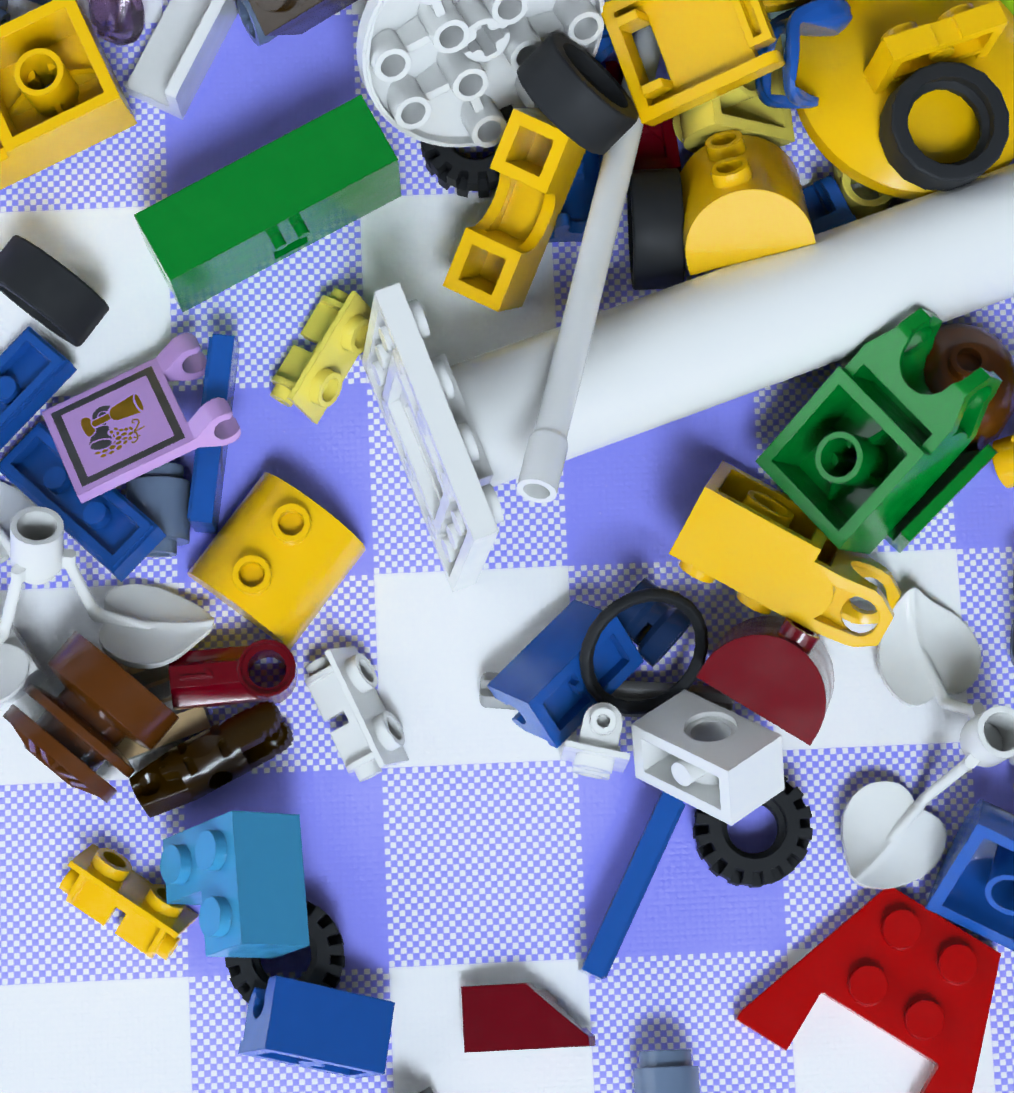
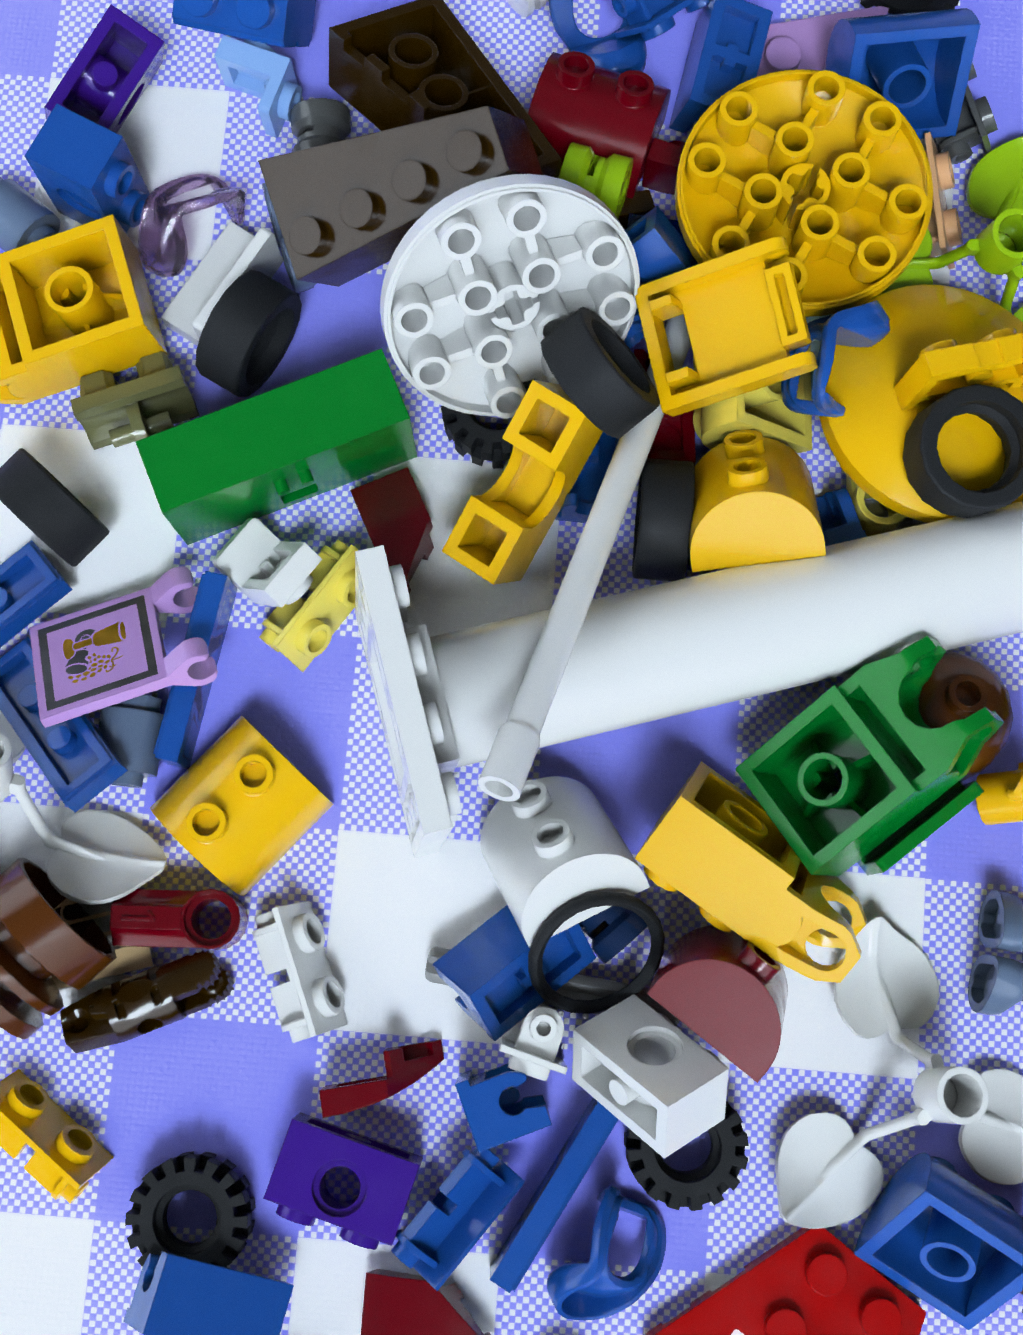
camera: 10 degrees right, 0 degrees up
(114, 182) = (134, 408): none -> olive hips
(220, 93) = (248, 333): none -> black tyre
(246, 879) = (152, 1148): dark azure brick -> none
(270, 324) = (265, 567): none -> white bracket
(388, 255) = (396, 519): none -> dark red slope
(397, 875) = (382, 1169): none -> dark purple brick
(471, 792) = (403, 1067): none -> dark red slope
(538, 927) = (457, 1216): none -> blue hinge
(564, 813) = (493, 1112): none -> blue hinge
(584, 557) = (555, 850): none -> white brick
(676, 969) = (590, 1288): none -> blue piece

